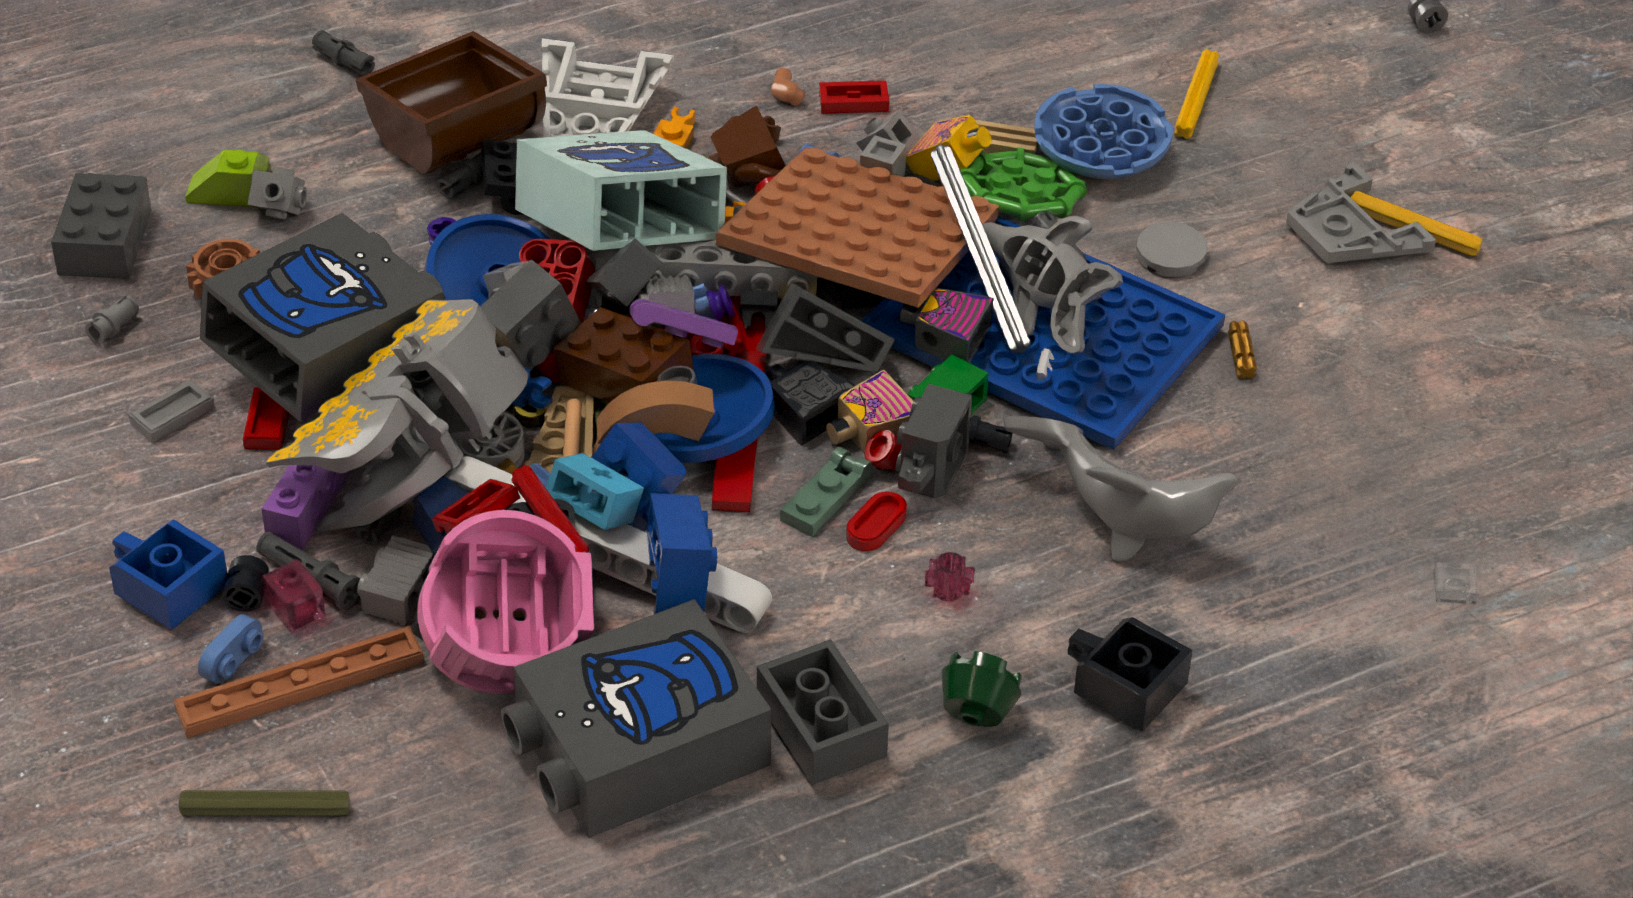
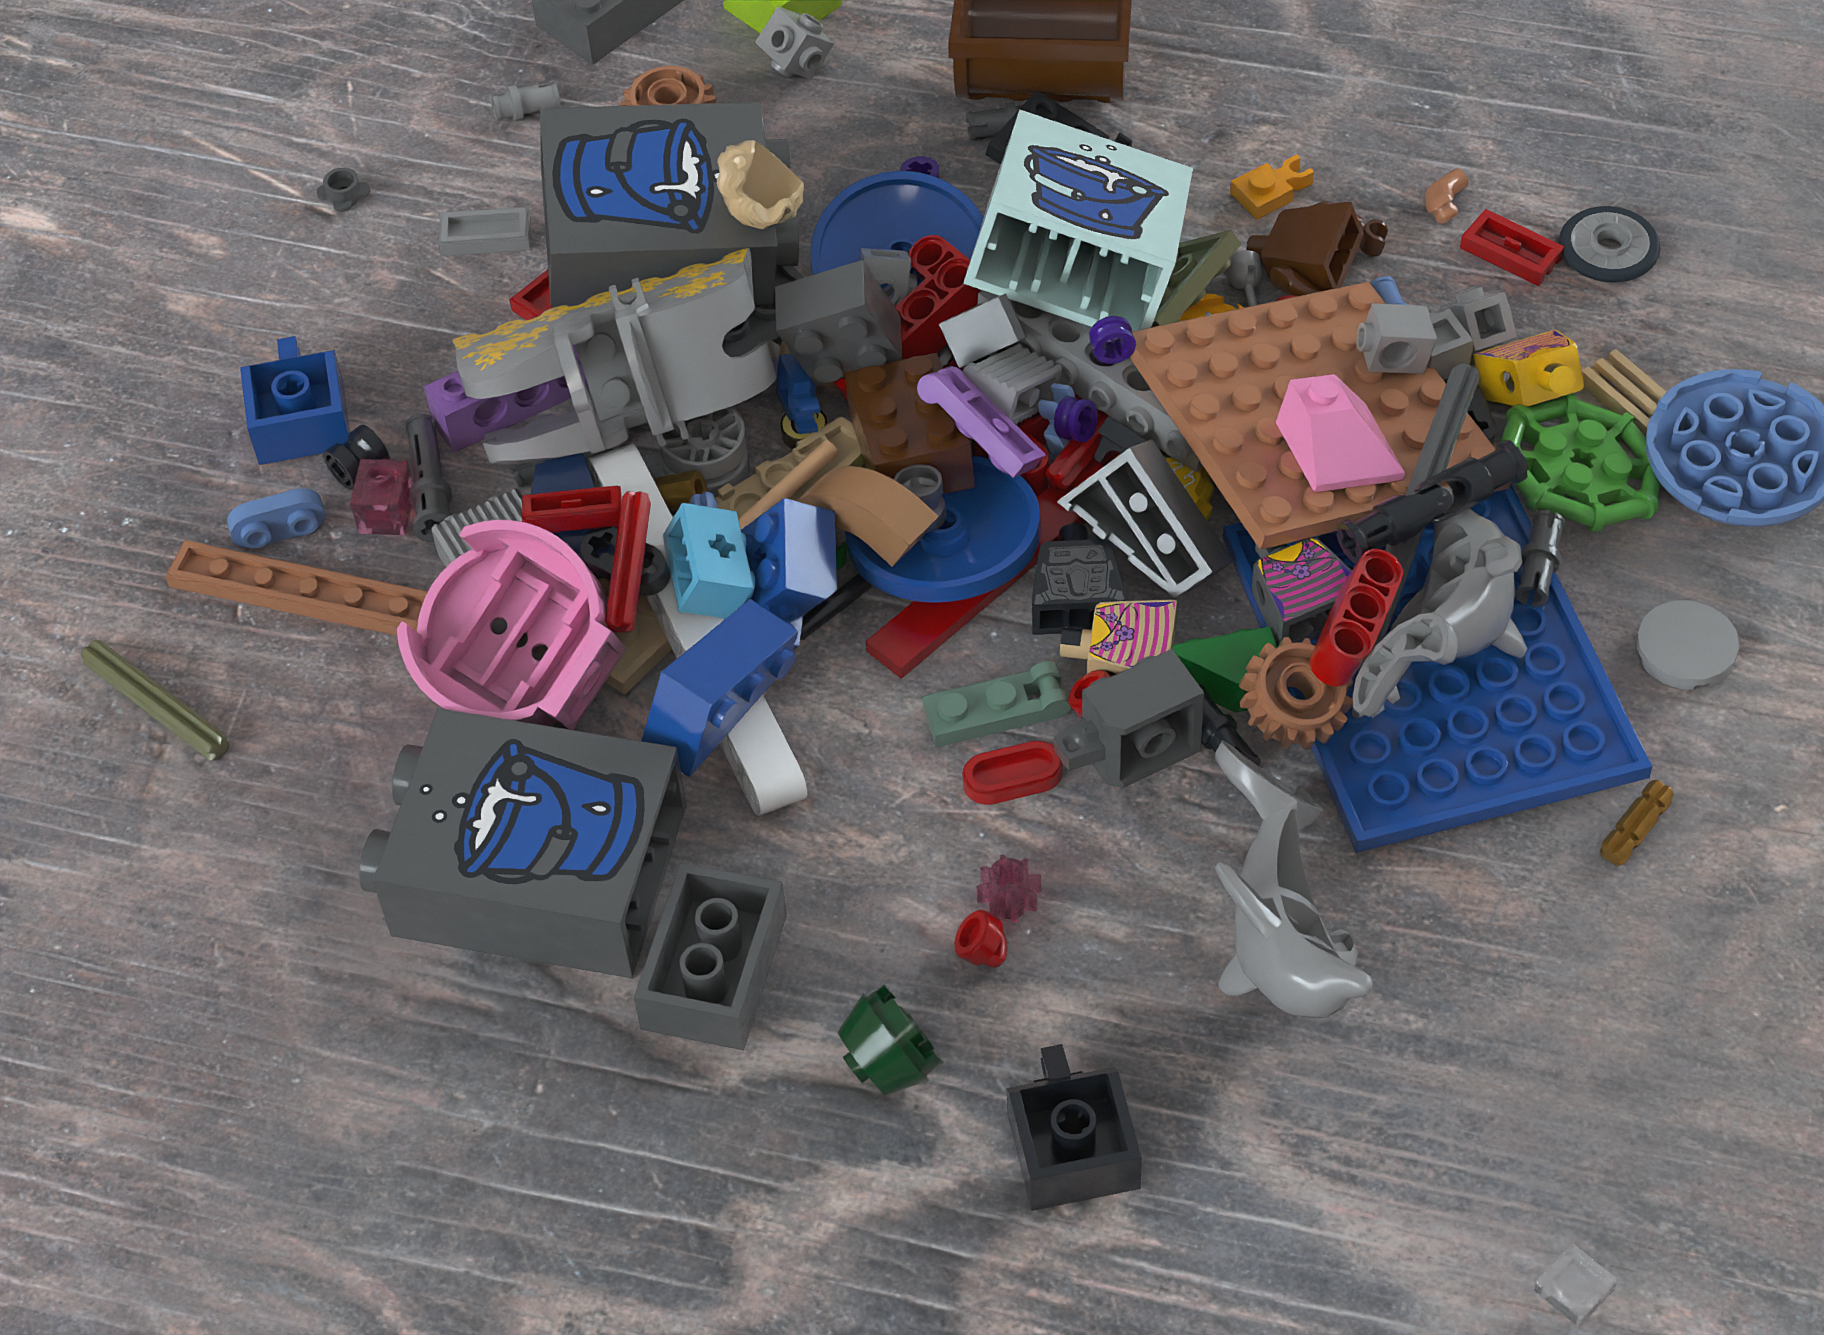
camera: 45 degrees right, 10 degrees up
(35, 437) = (342, 189): none -> dark grey plate
(408, 257) = (758, 185): none -> tan hair
(594, 95) = (1215, 97): white wedge -> none
(713, 239) = (1114, 350): none -> dark purple bush
(871, 160) = (1396, 338): none -> light grey brick
(900, 222) = (1335, 436): none -> bright pink slope
(926, 73) = (1637, 237): none -> wheel
(961, 612) = (981, 940): none -> red tile
(994, 228) = (1406, 516): none -> black piece
(1011, 375) = (1281, 714): none -> nougat gear
(1016, 309) = (1356, 617): none -> red beam

